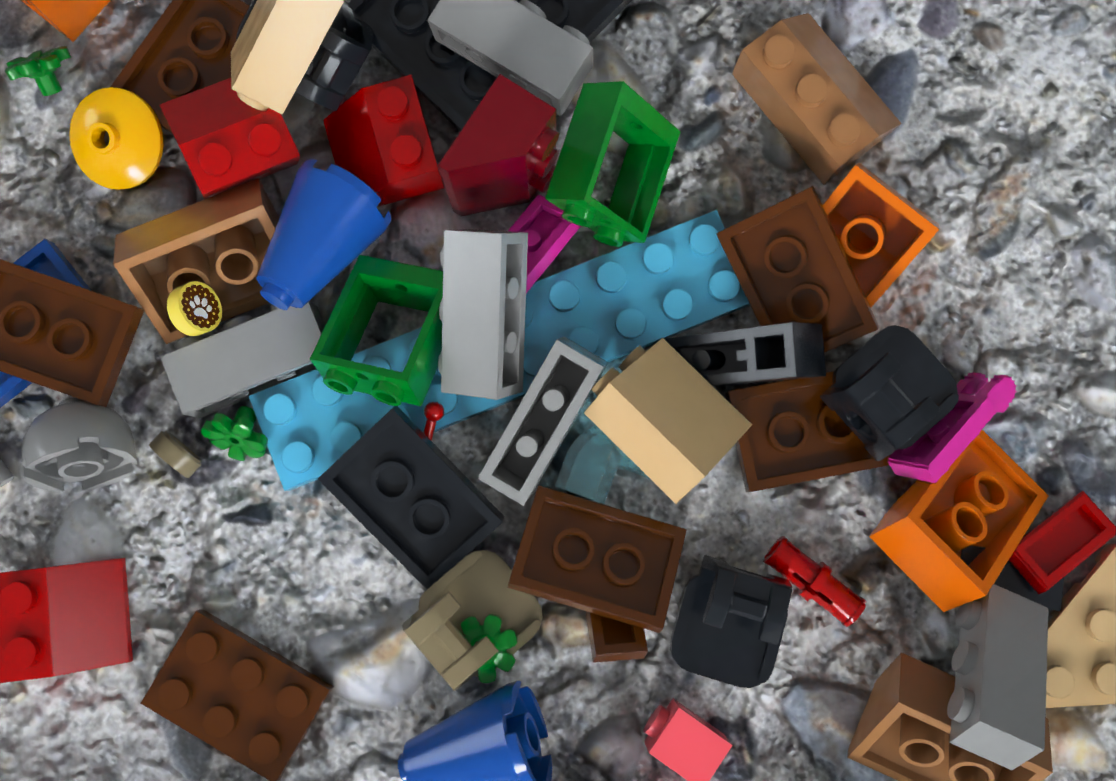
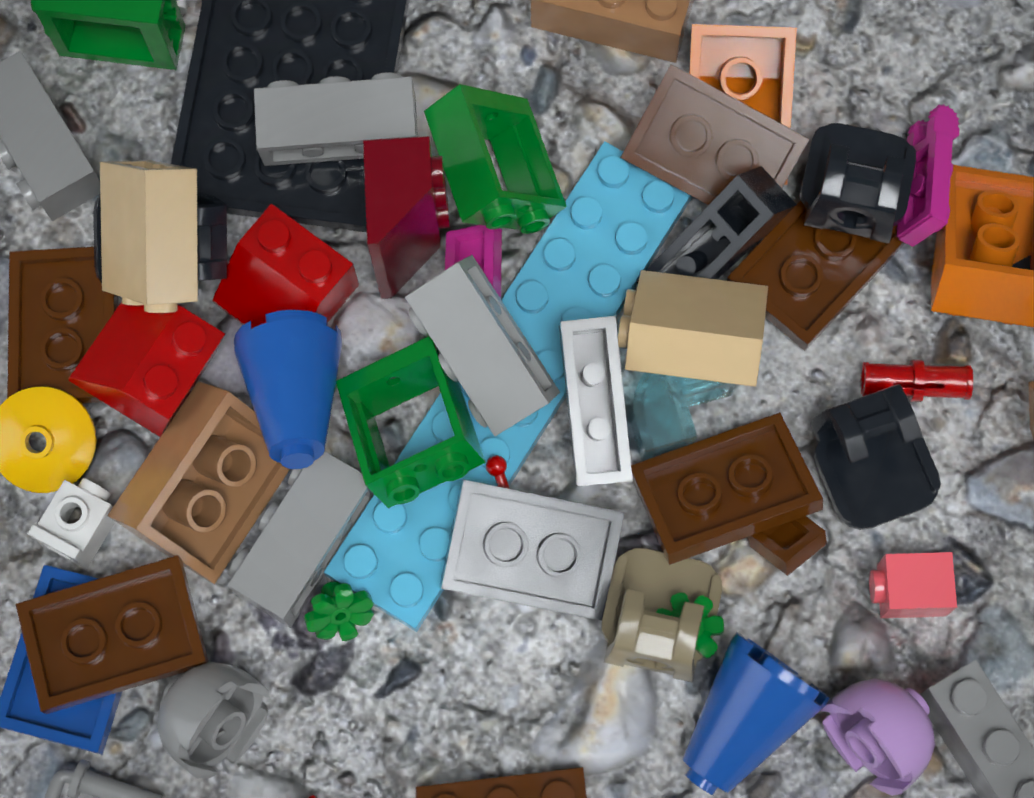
camera: 30 degrees left, 10 degrees down
(90, 240) = (80, 539): none -> white brick
(175, 453) = (297, 665): dark tan tile -> none
(194, 308) = (228, 523): tile -> none

